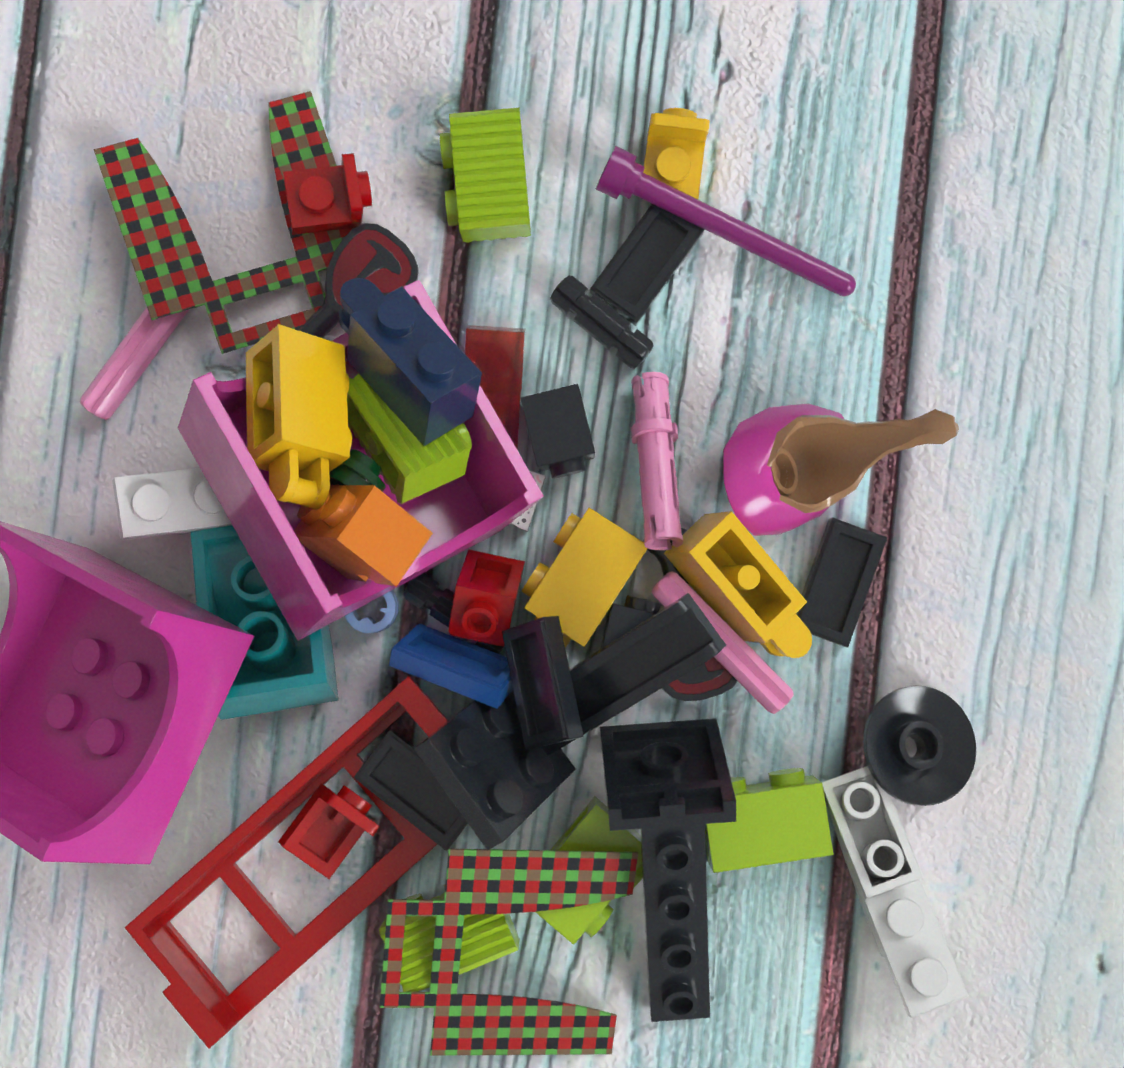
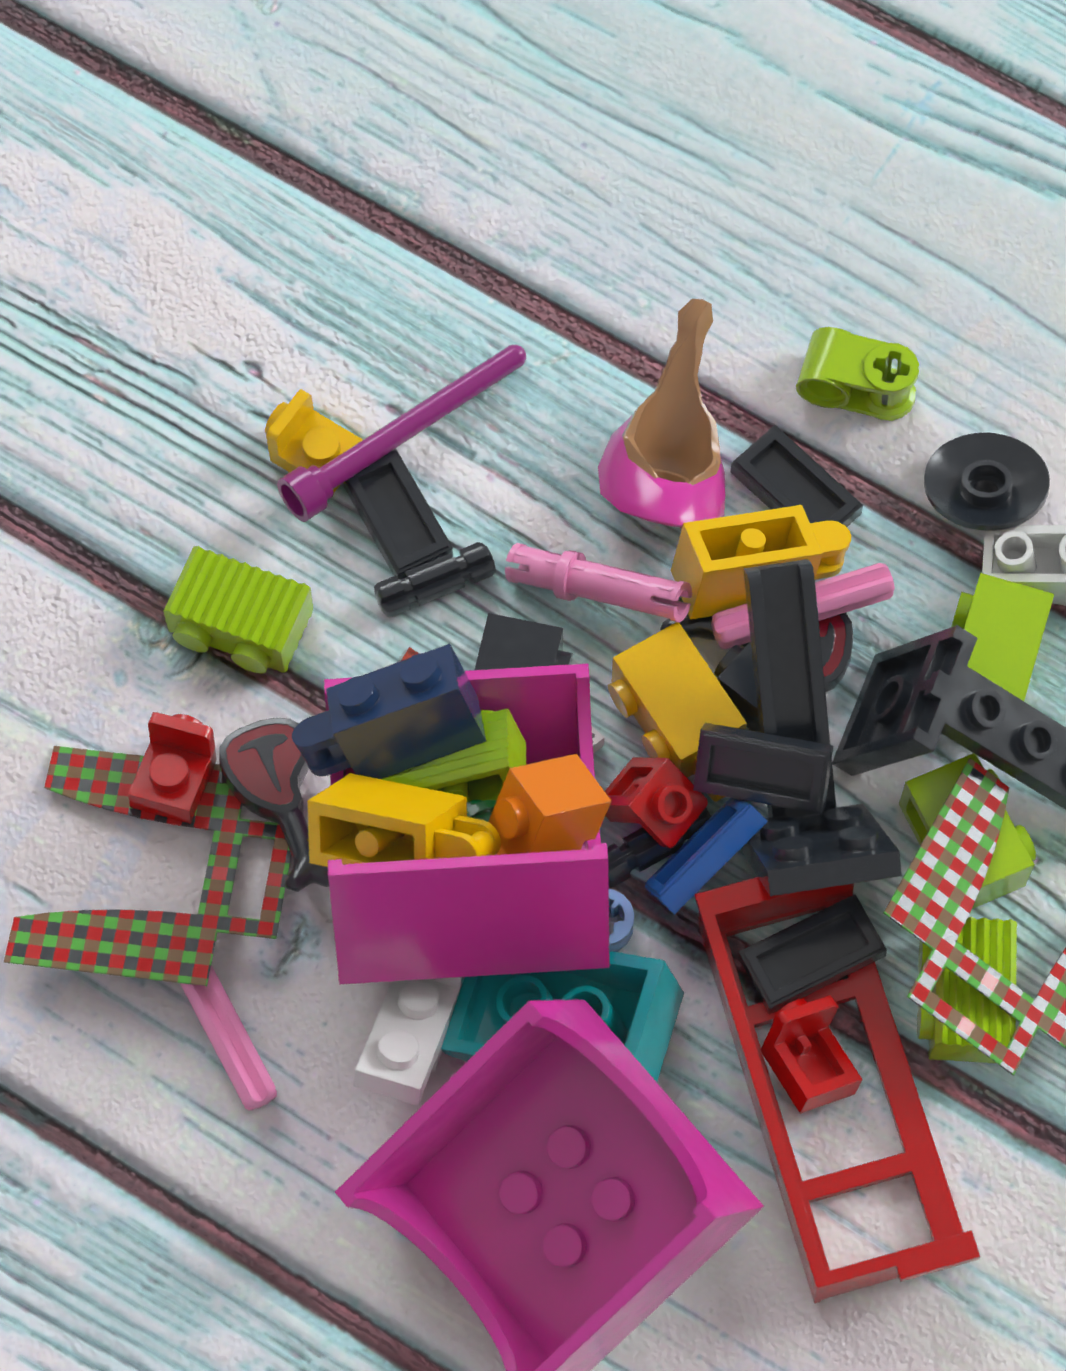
camera: 65 degrees left, 20 degrees down
(969, 581) = (853, 372): none -> lime piece

